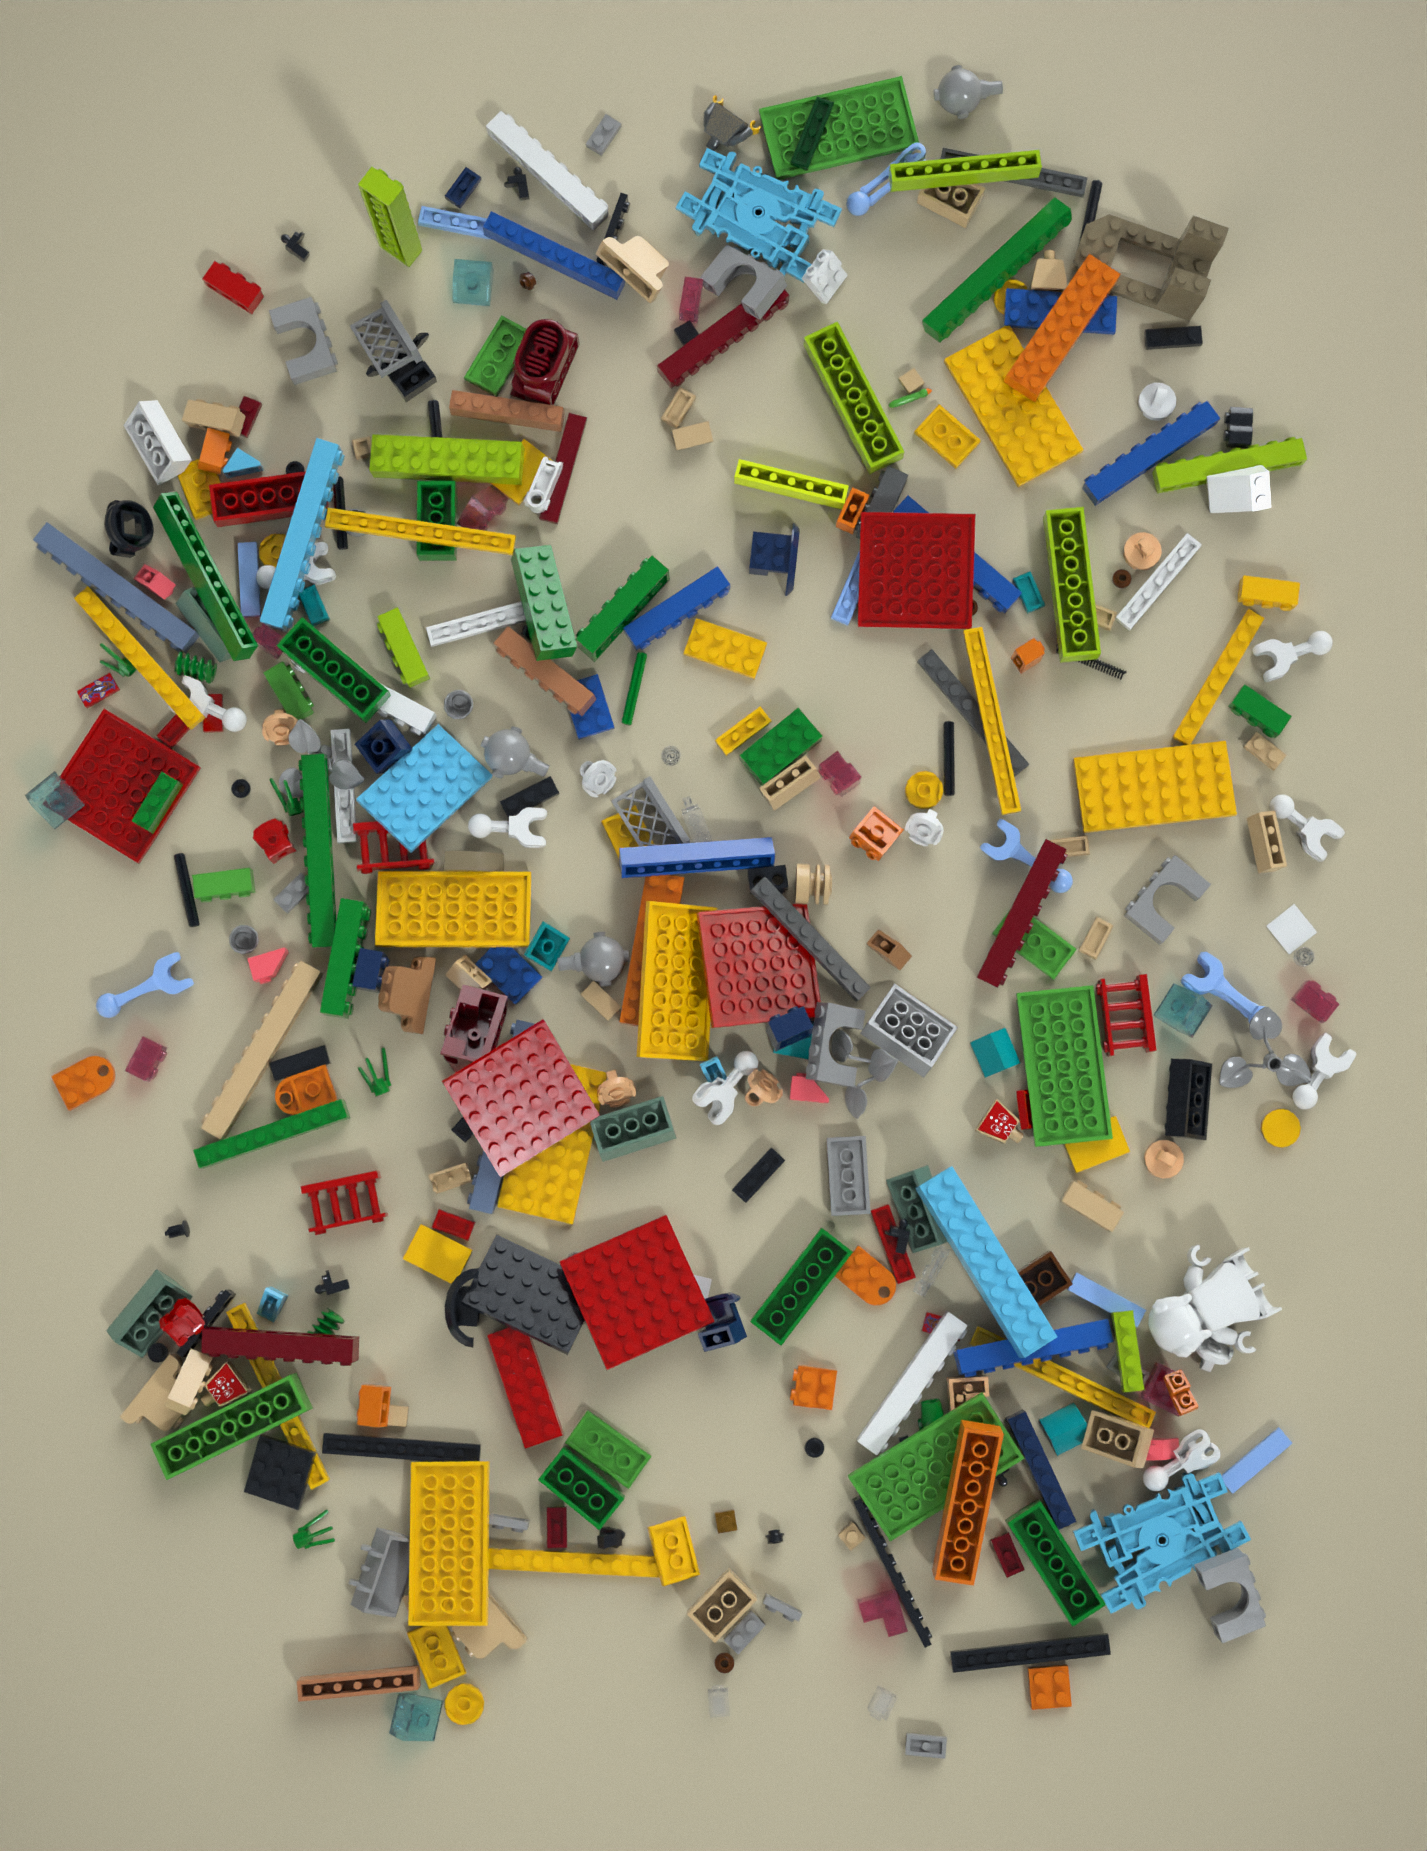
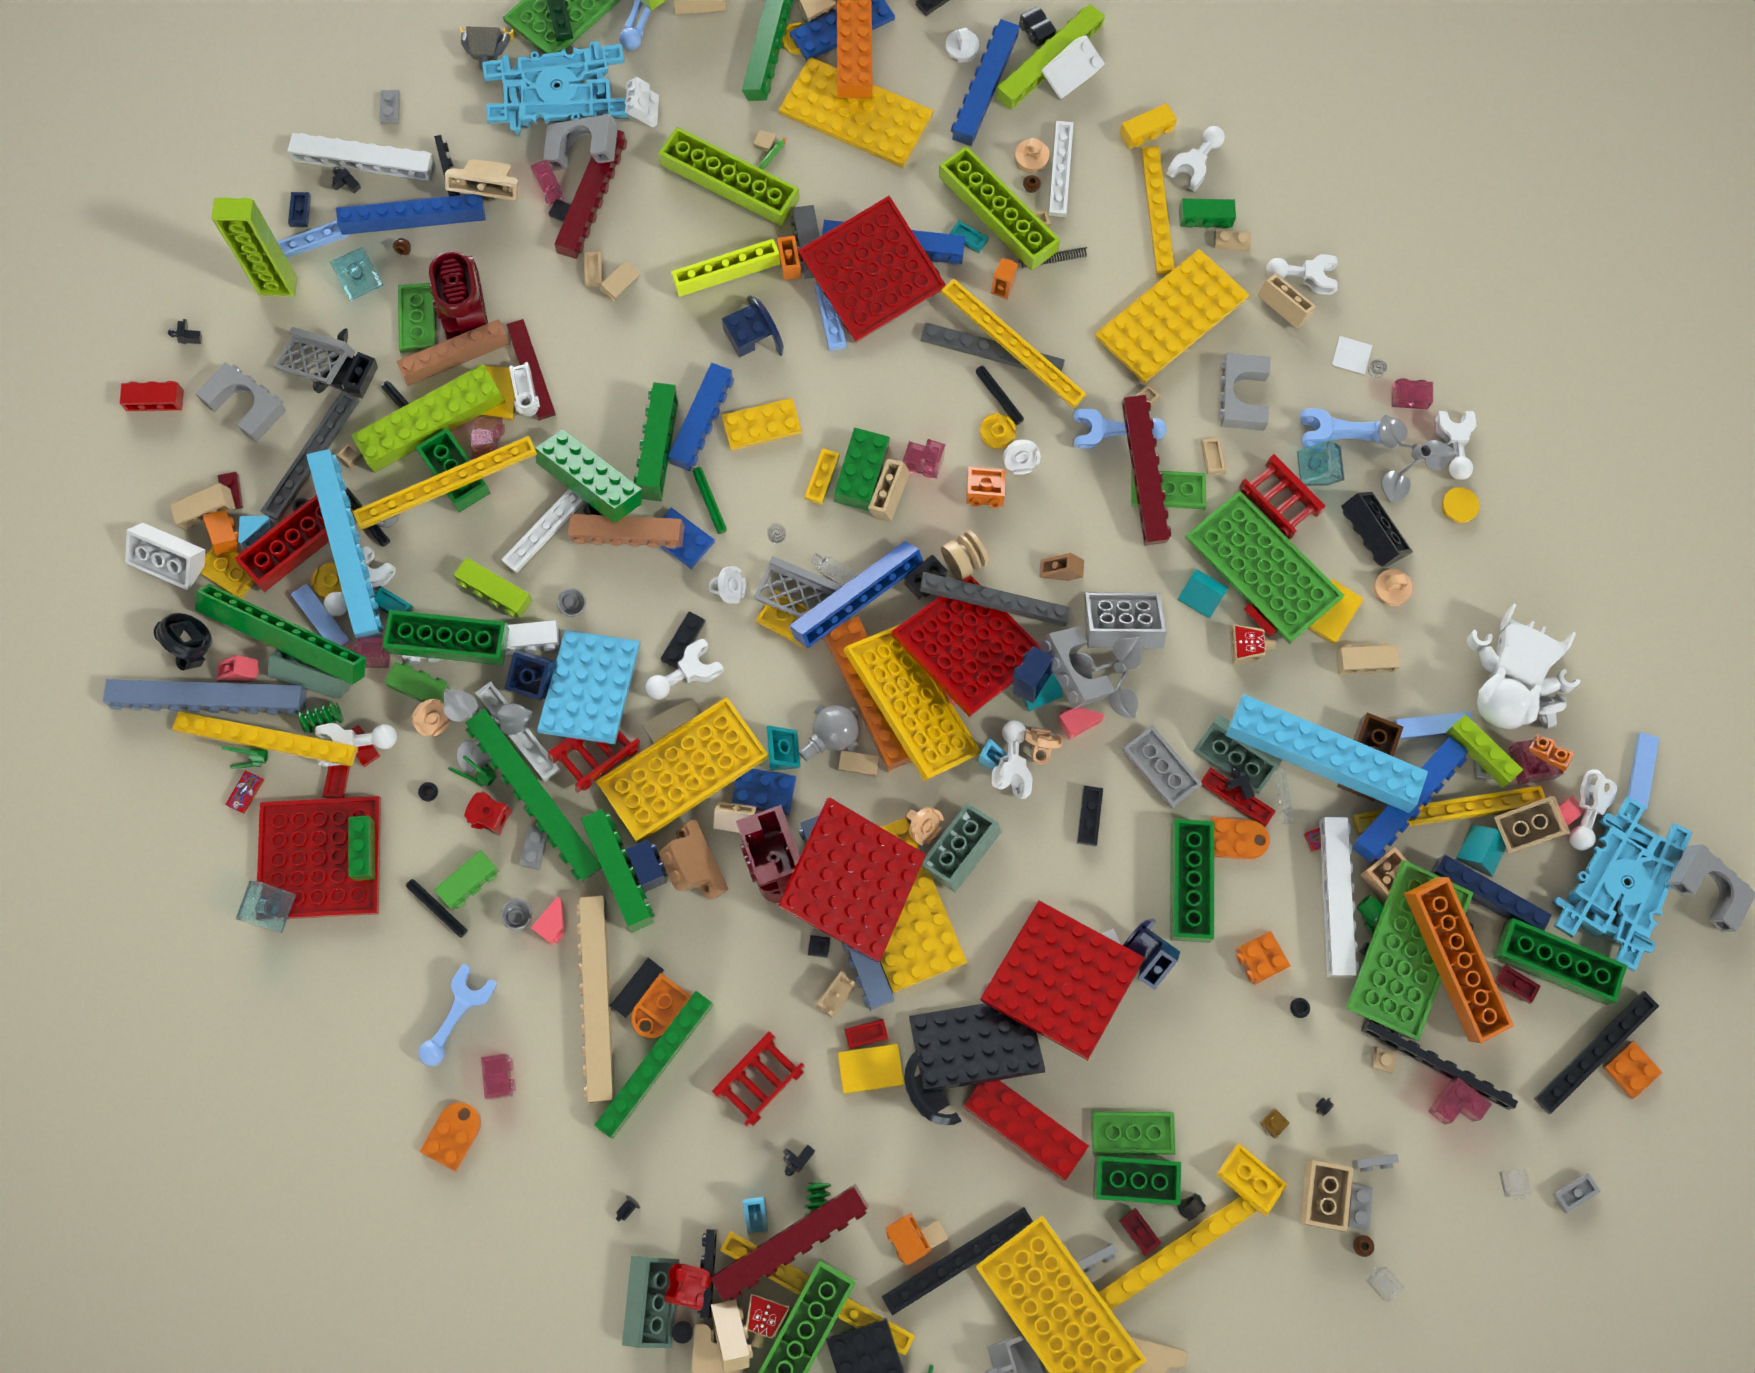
camera: 40 degrees left, 10 degrees down
(330, 427) = (300, 470): none -> dark grey plate
(377, 1086) = (720, 959): green plant -> none
(509, 753) = (642, 612): light grey piece -> none
(947, 436) = (821, 163): yellow tile -> none

